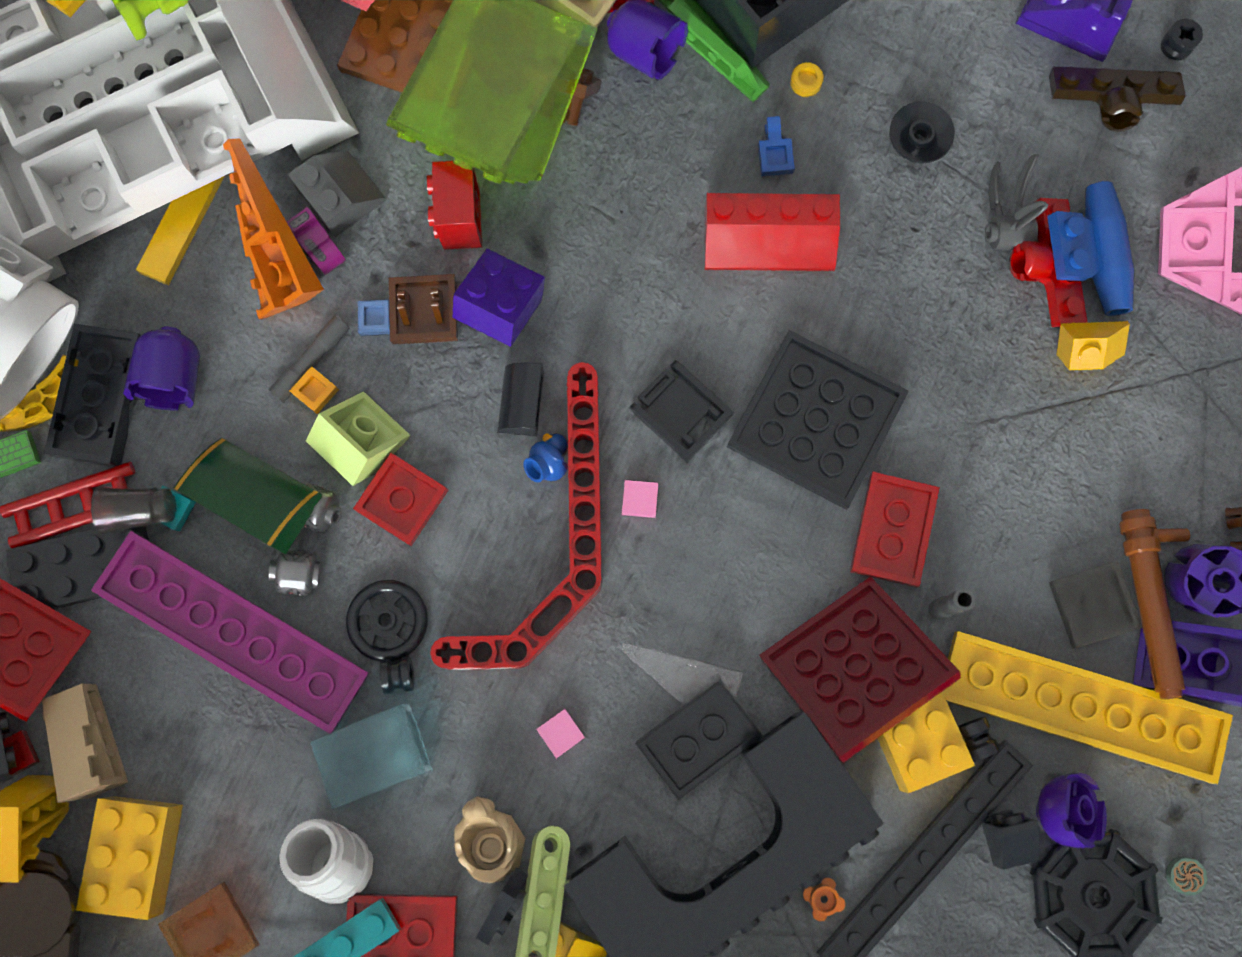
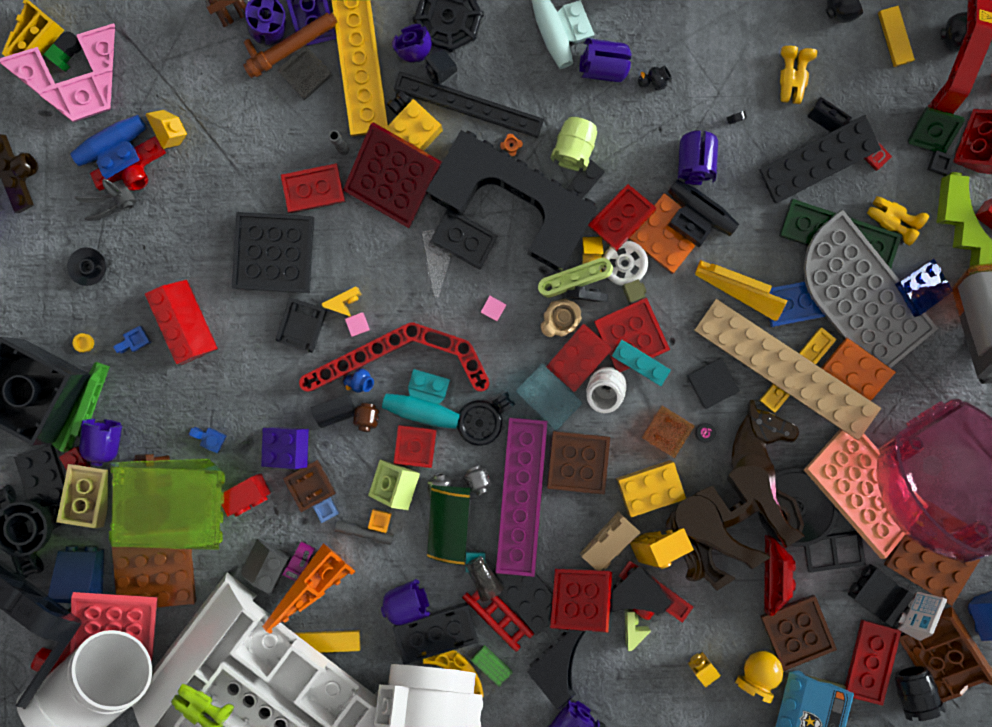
camera: 120 degrees left, 10 degrees up
(237, 754) = (578, 462): none -> reddish brown plate
(407, 841) = (579, 357): none -> red plate
(462, 544) = (423, 402): none -> teal plate
(484, 443) = (366, 417): none -> reddish brown head
(569, 197) = (210, 439): none -> blue plate
(686, 483) = (338, 302): none -> yellow slope

